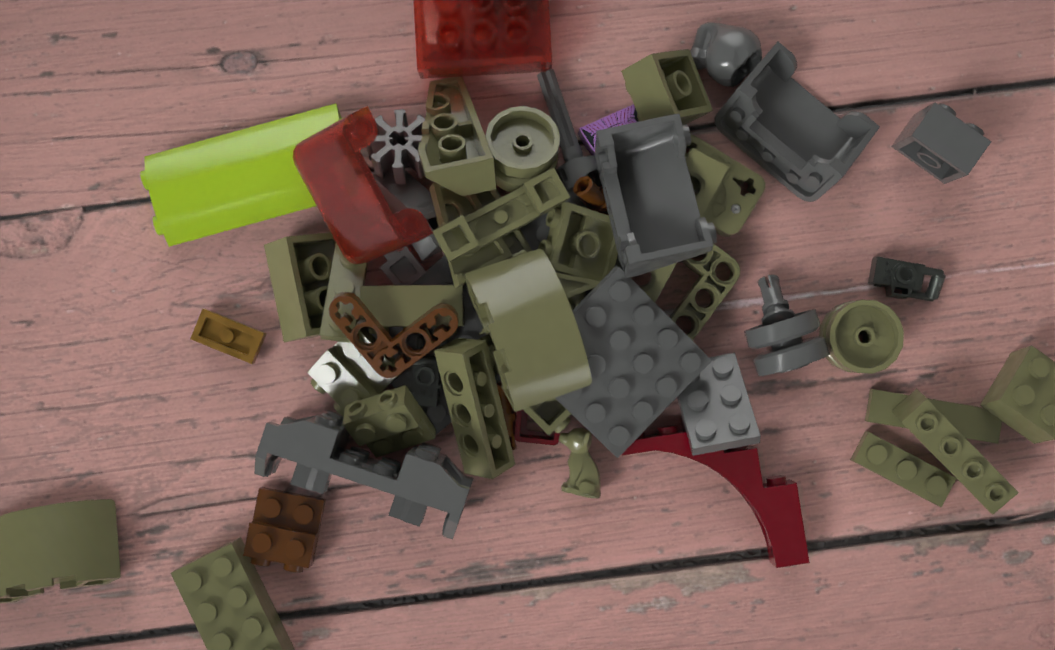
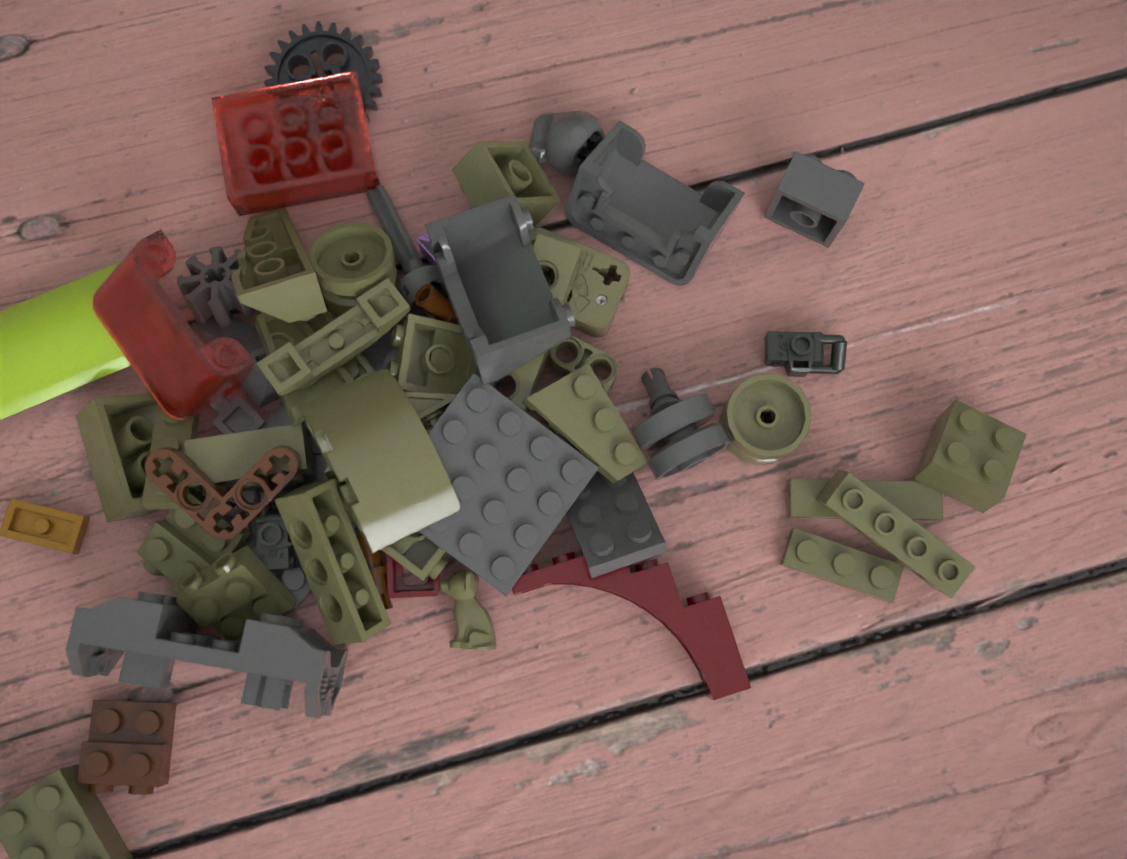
camera: 10 degrees left, 10 degrees down
(709, 317) = (588, 419): none -> olive wing

